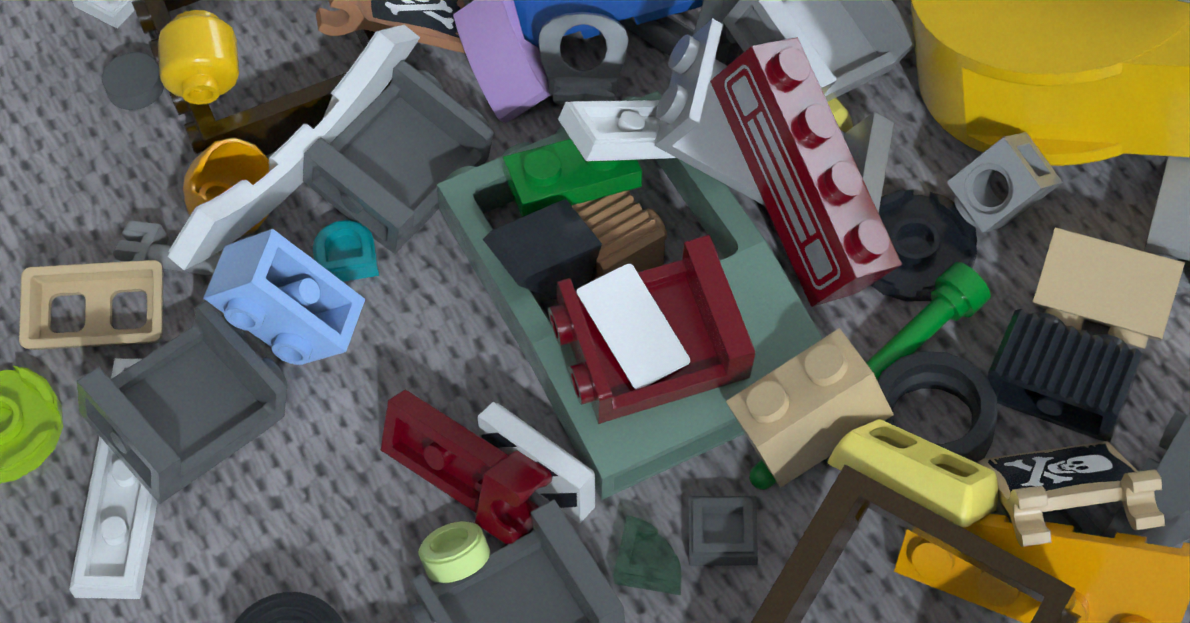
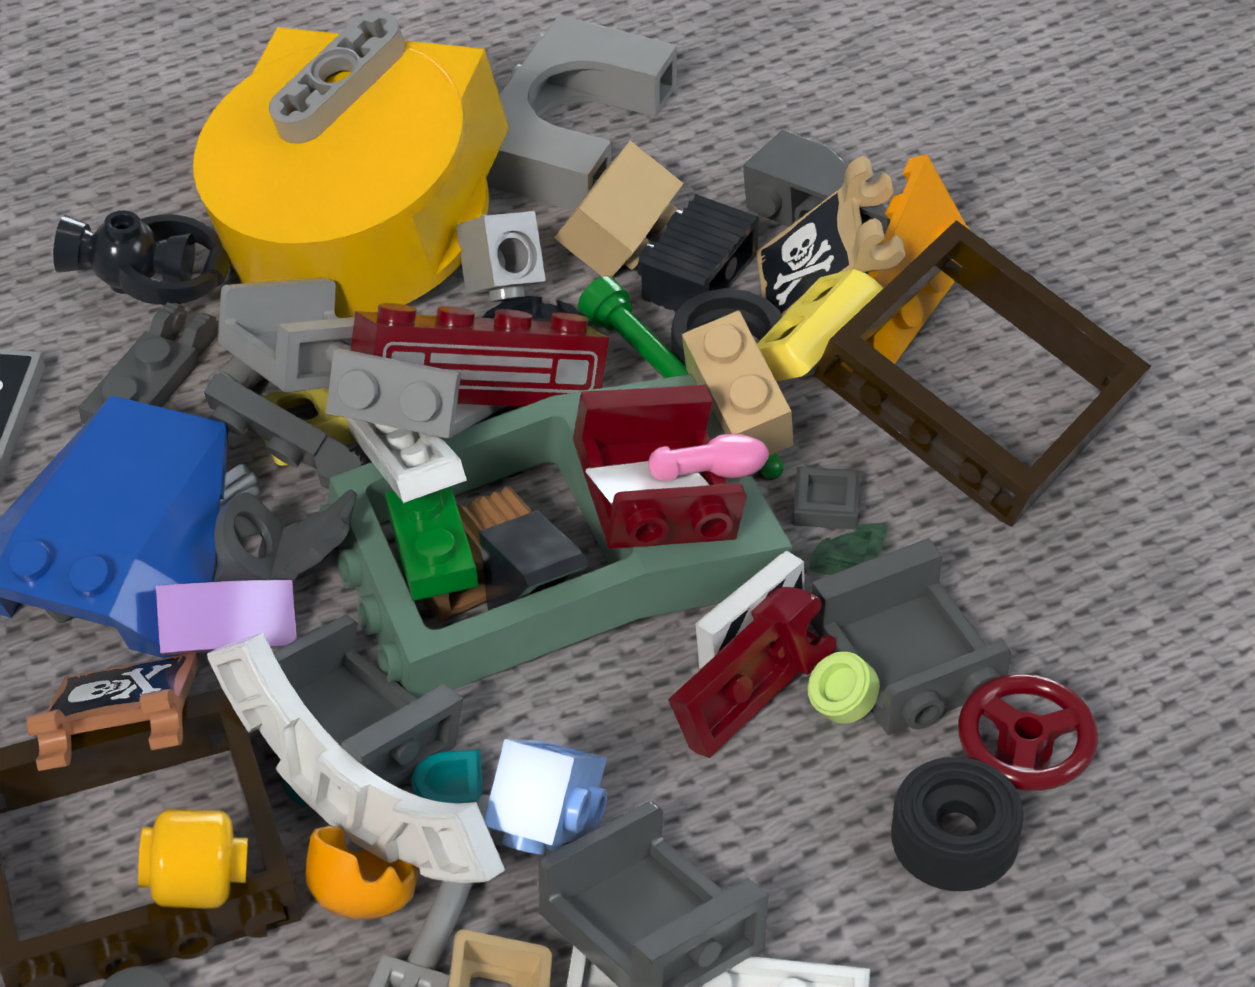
camera: 90 degrees left, 10 degrees down
(679, 390) = (724, 455): none -> bright pink piece

